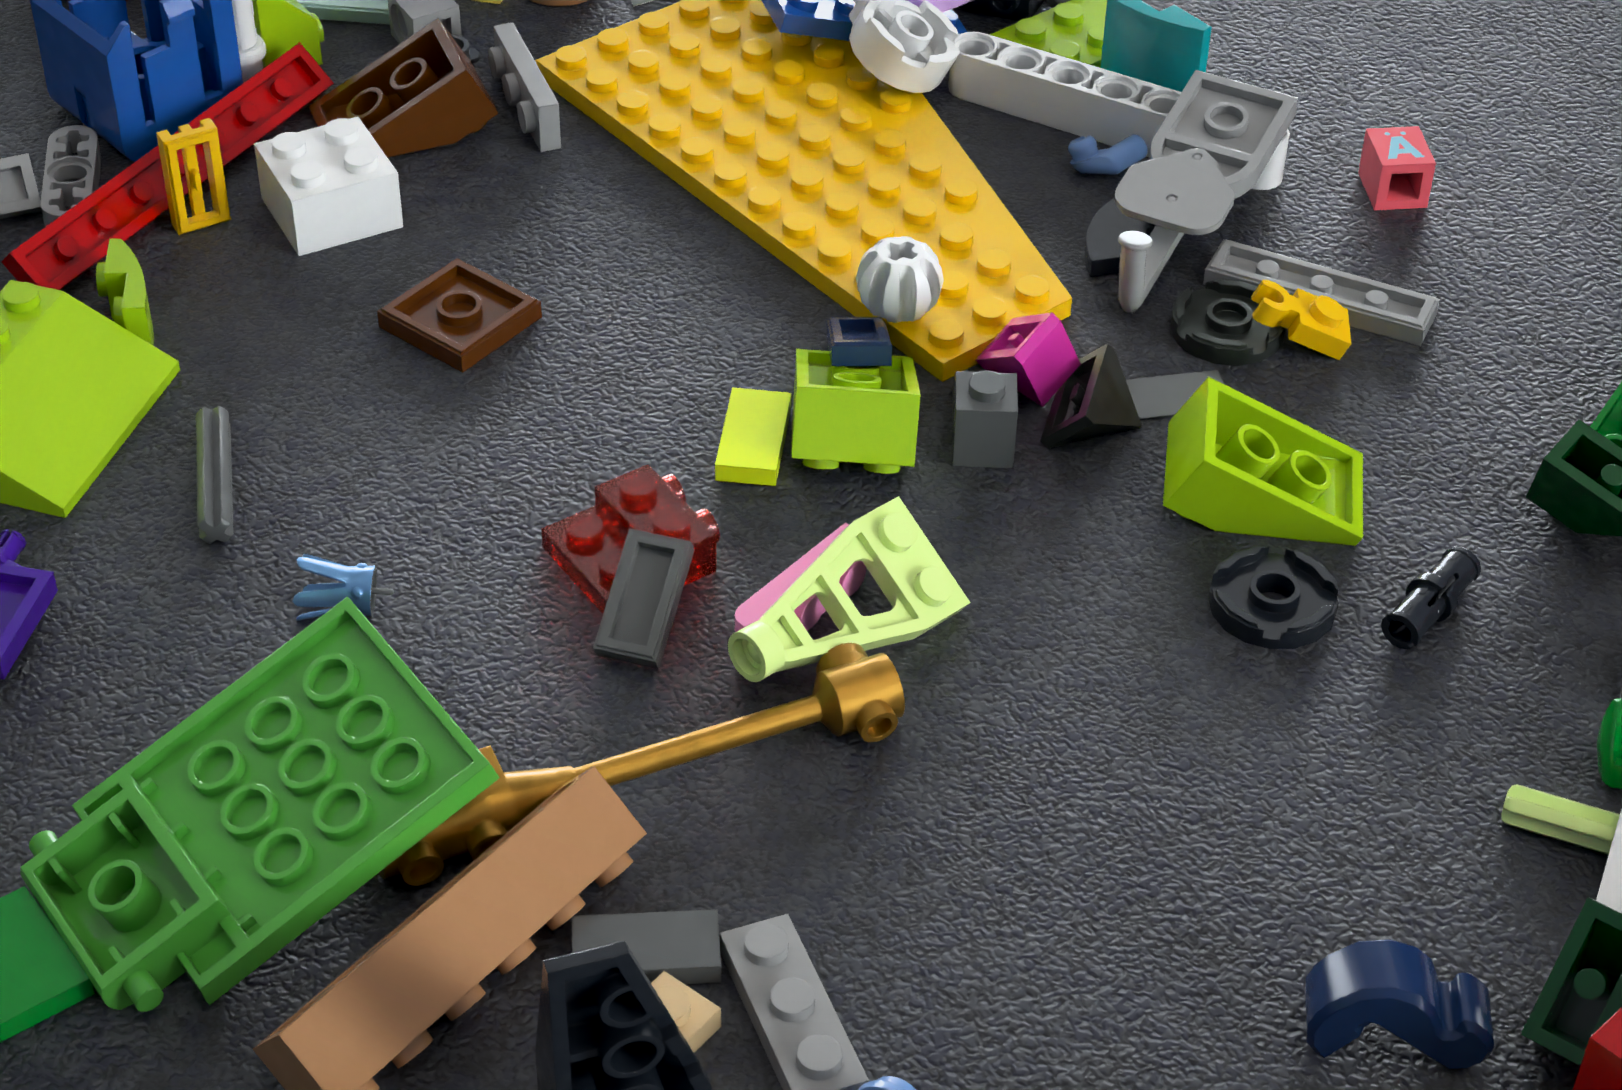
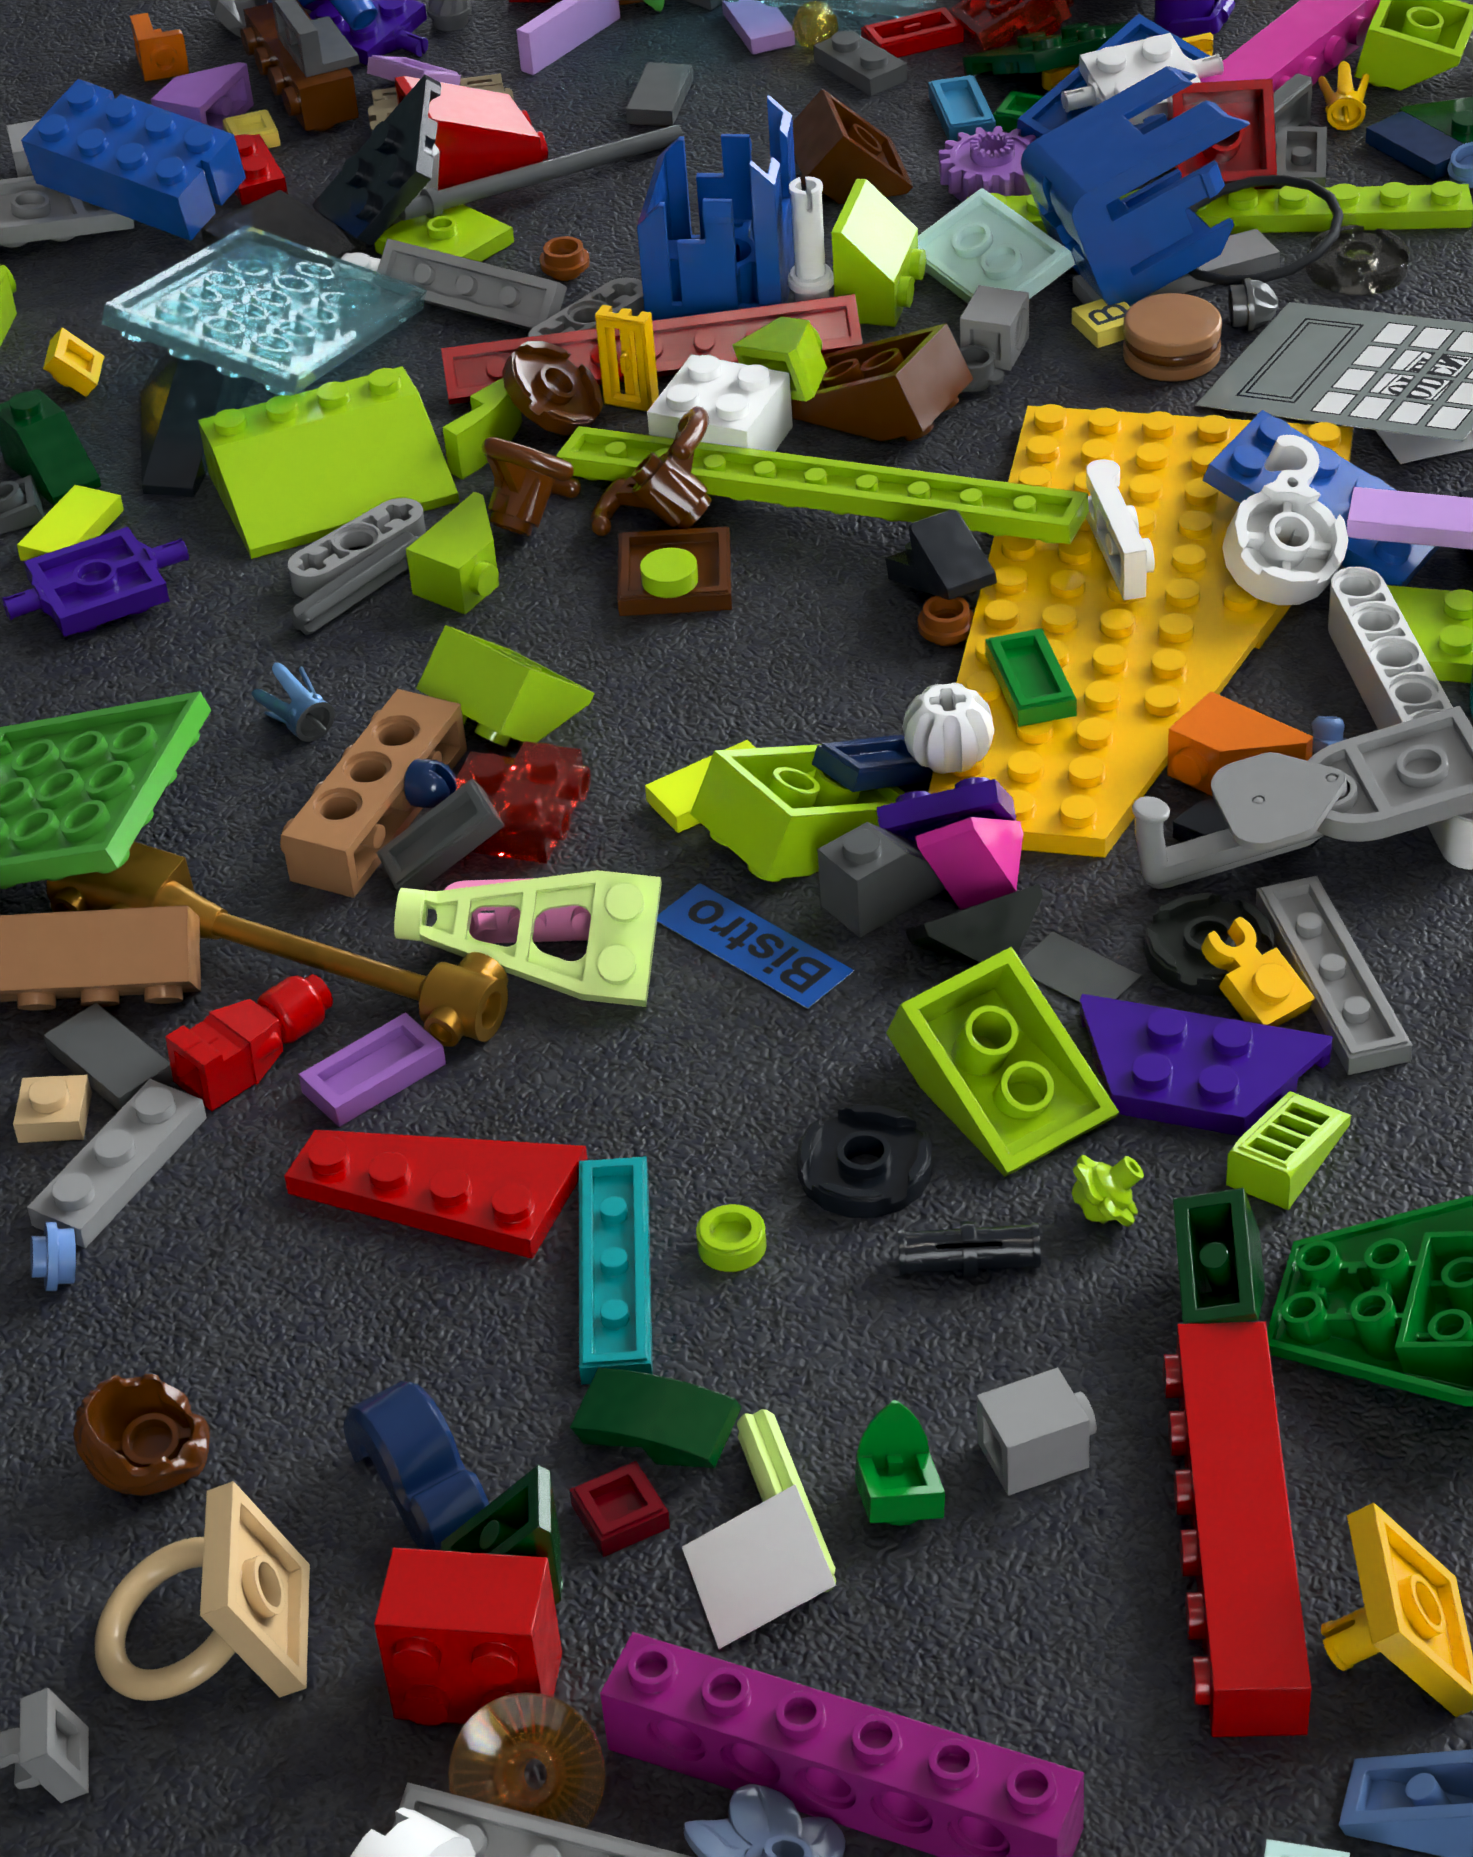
camera: 55 degrees right, 0 degrees up
(152, 234) = (551, 388): none -> reddish brown tile
(175, 465) = (330, 555): none -> light grey beam
(264, 312) = (524, 484): none -> reddish brown piece
(288, 399) = (455, 558): none -> lime slope
(313, 102) = (787, 347): none -> lime slope
(374, 246) = (661, 482): none -> reddish brown piece
(482, 189) = (842, 485): none -> lime plate
(483, 309) = (669, 572): none -> lime tile
(493, 469) = (500, 688): none -> lime slope
(524, 606) = (364, 797): none -> medium nougat brick
(525, 87) = (981, 419): light grey plate -> none
(574, 563) = (428, 783): none -> dark blue hinge
(680, 188) = (941, 558): none -> black slope
(724, 228) = (945, 620): none -> dark orange plate
(745, 845) = (245, 1039): none -> red piece
(775, 94) = (1118, 530): none -> white plate
(860, 796) = (372, 1069): none -> medium lavender tile
(865, 219) = (1030, 677): none -> green tile
(982, 517) = (754, 945): none -> blue sticker
(986, 321) = (923, 812): none -> dark purple plate
(1050, 828) = (455, 1187): none -> red wing
(1057, 192) = (1225, 732): none -> orange slope
(1255, 788) = (614, 1267): none -> teal tile
(1285, 708) = (731, 1238): none -> lime tile
(1355, 392) = (1195, 1065): none -> dark purple wing
(1448, 500) = (1106, 1189): none -> lime plant
(1462, 846) = (662, 1415): none -> dark green slope
(1481, 407) = (1271, 1177): none -> lime slope
(1526, 927) = (619, 1508): none -> dark red tile

